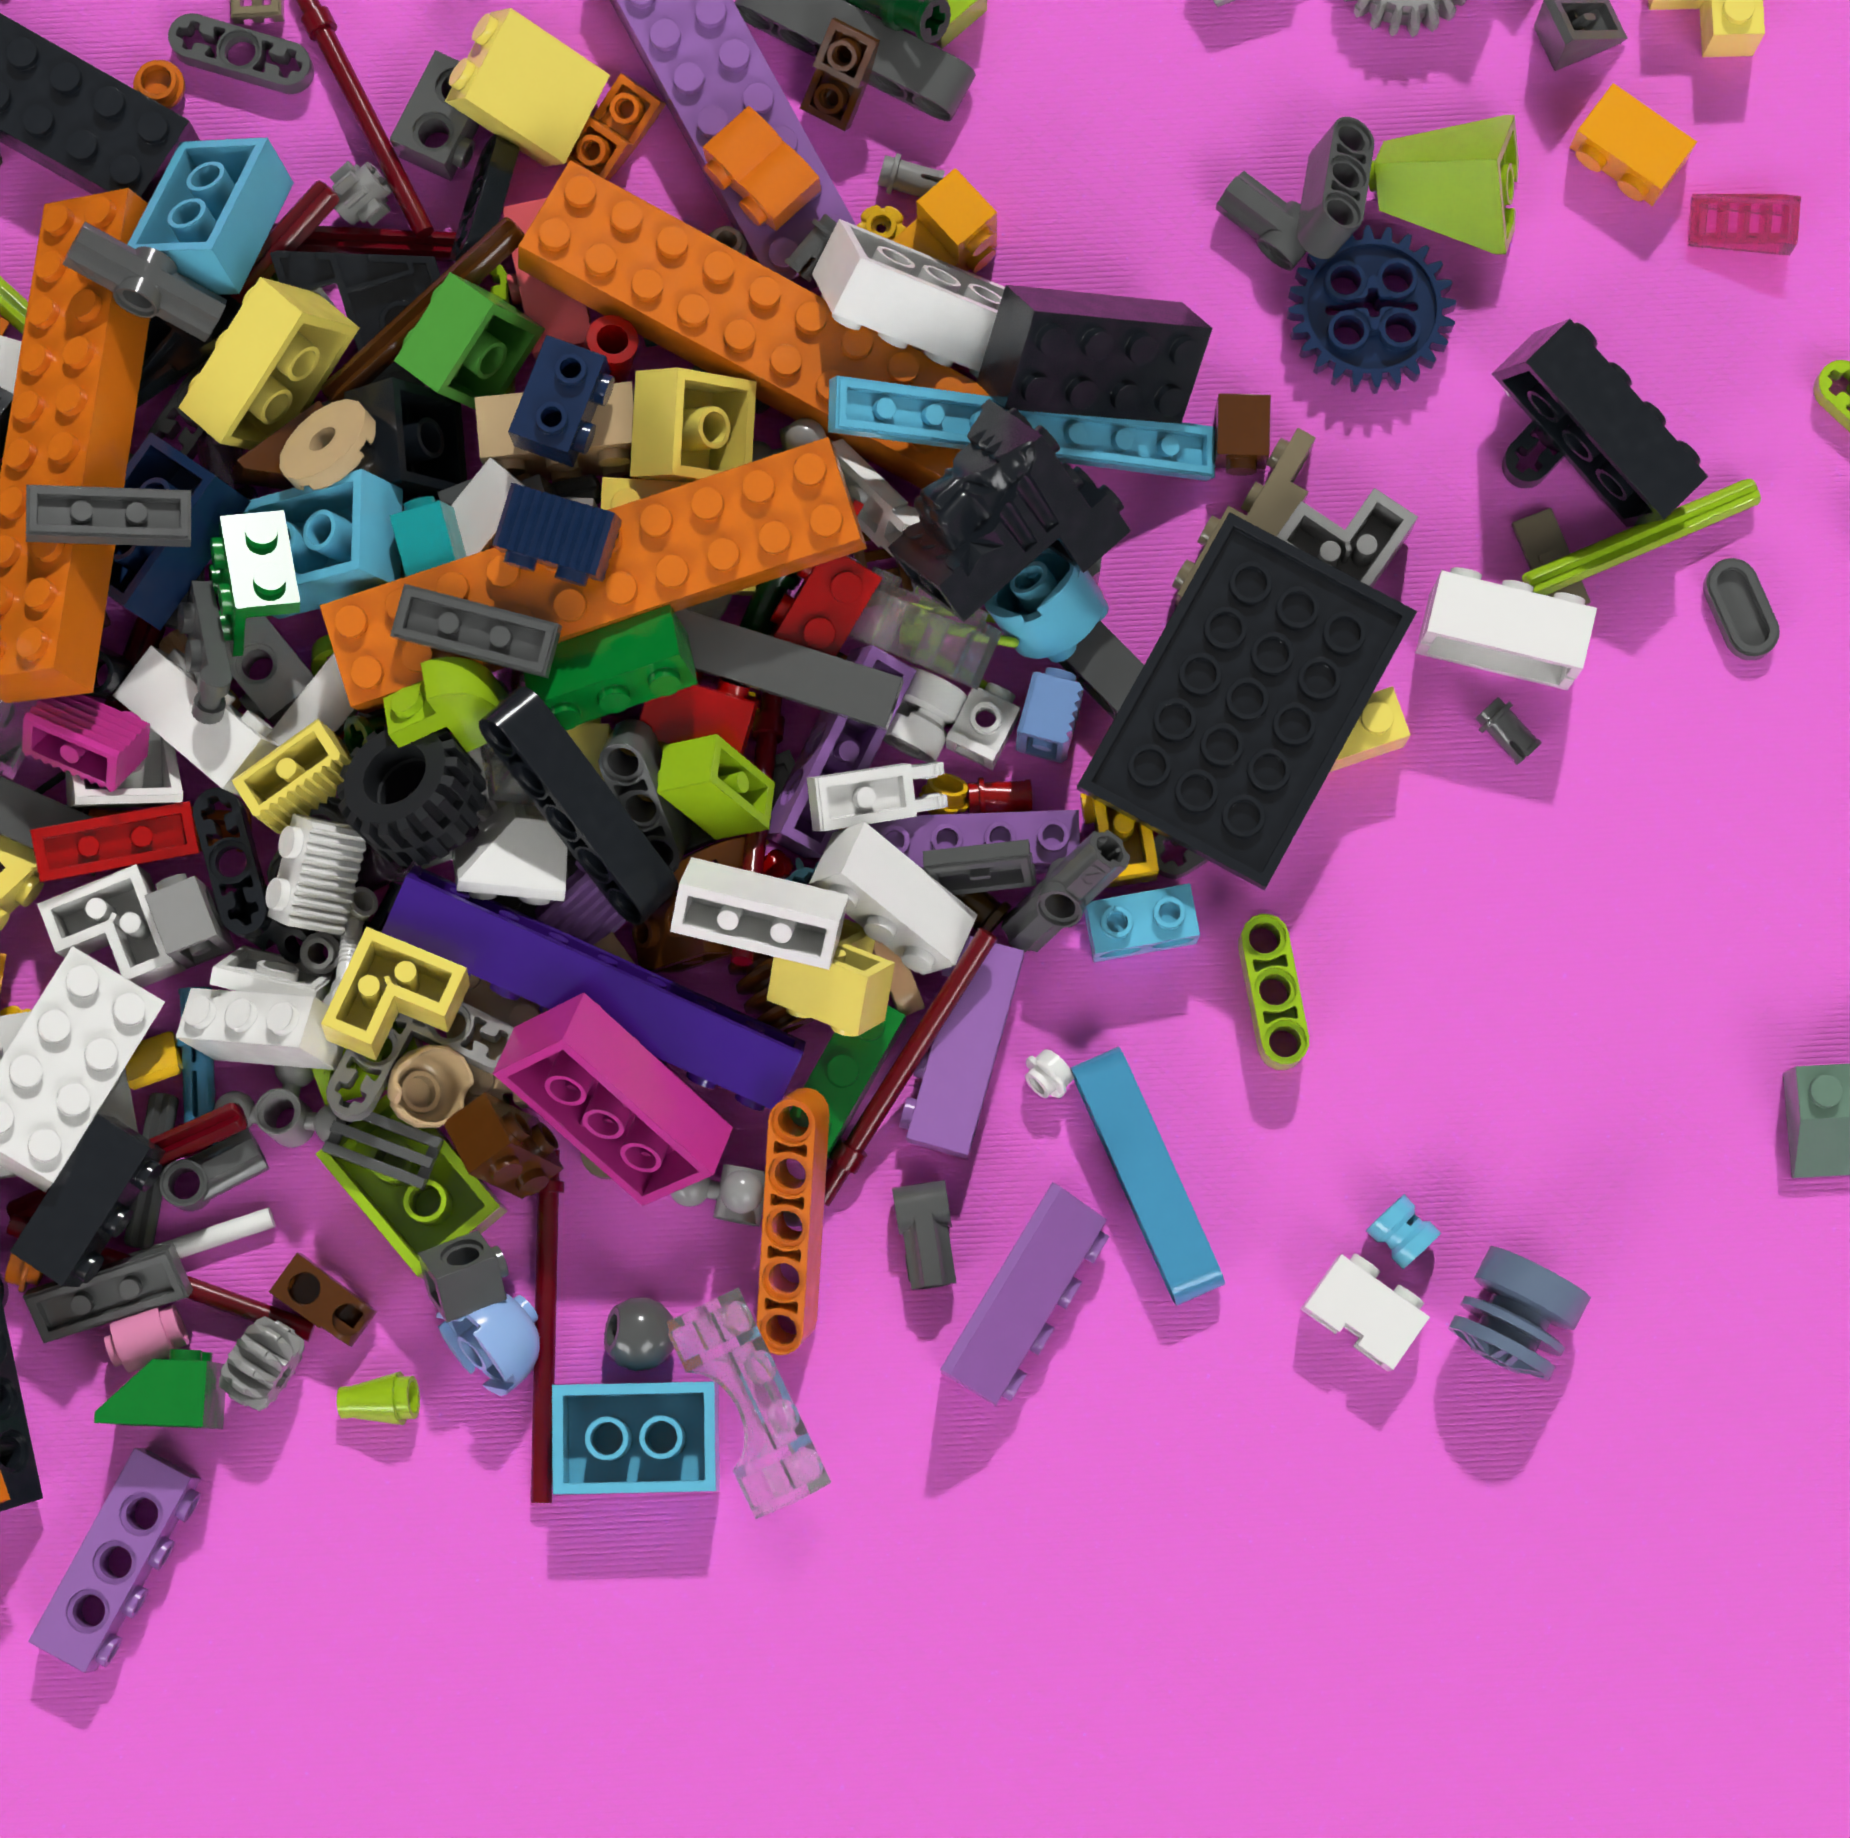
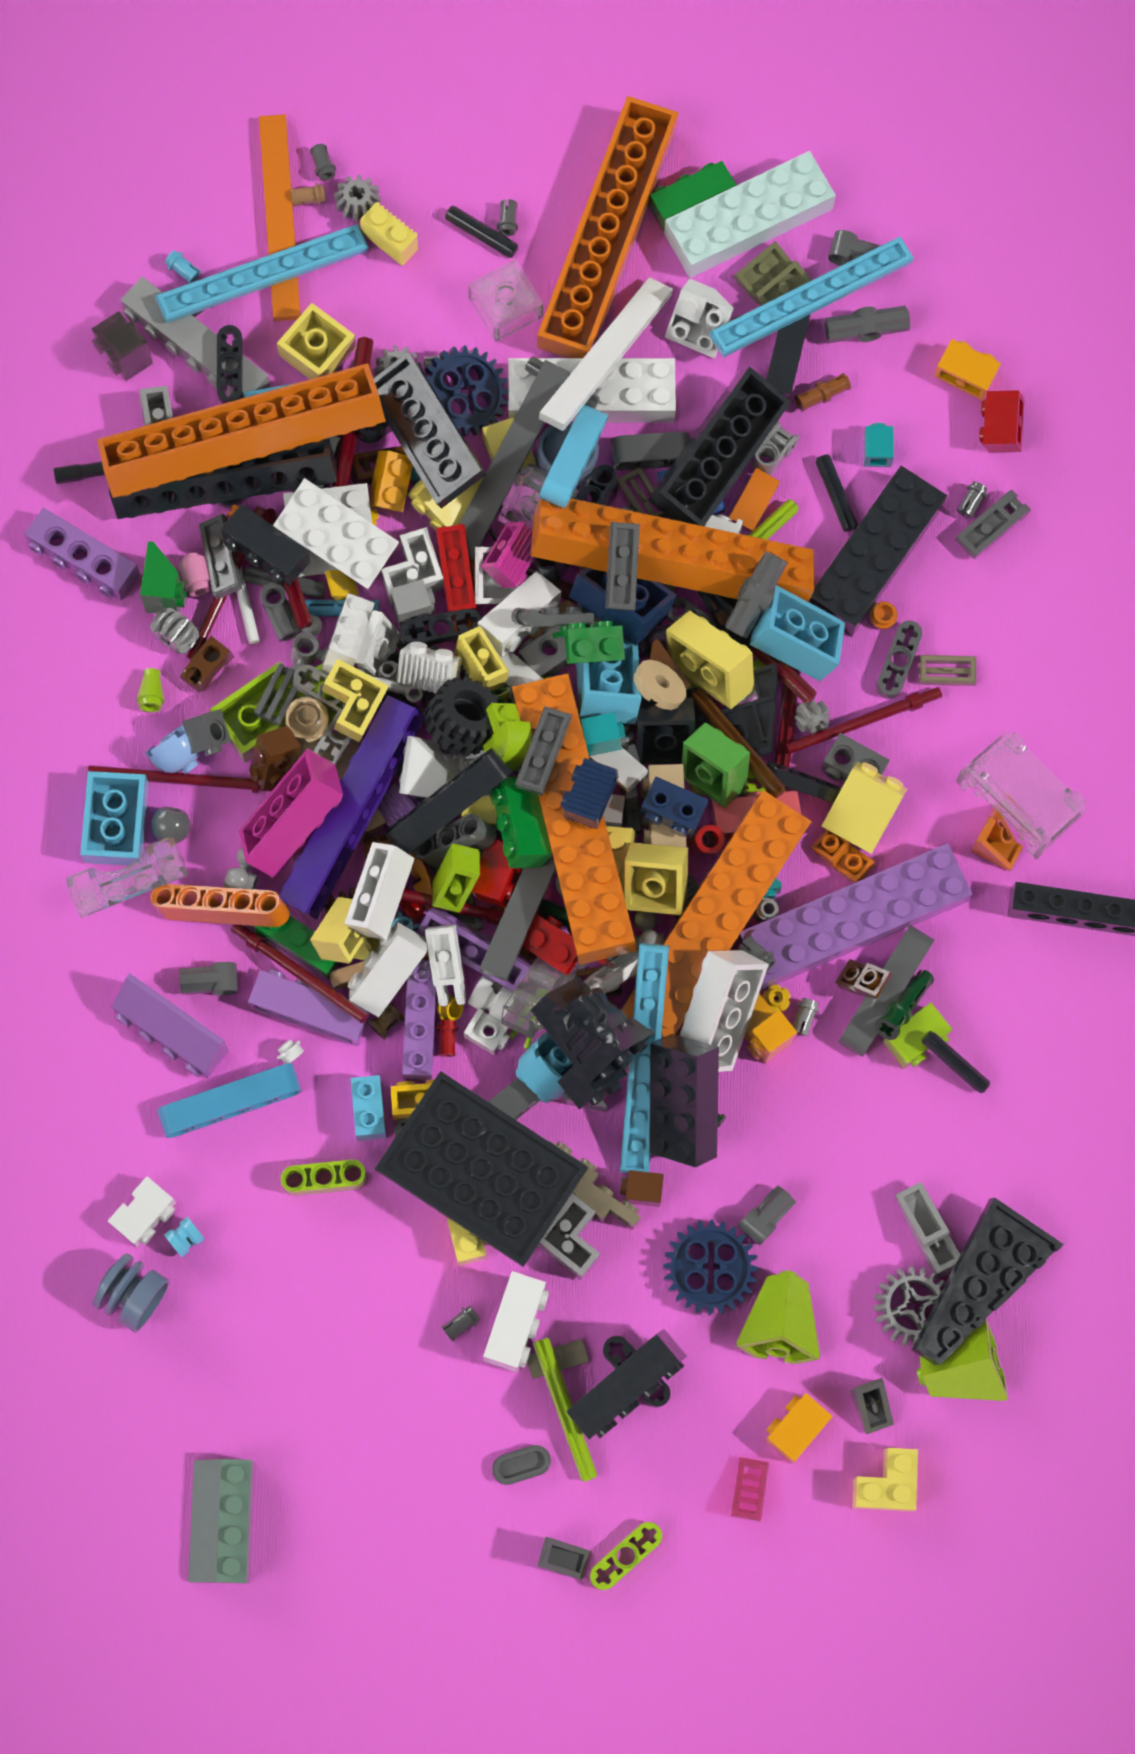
camera: 85 degrees right, 5 degrees down
(760, 169) = (803, 926): orange brick -> none
(982, 867) = (402, 1018): dark grey tile -> none
(1049, 715) = (487, 1065): medium blue brick -> none
(1065, 891) = (385, 1063): dark grey piece -> none
(1335, 187) = (787, 1258): dark grey beam -> none

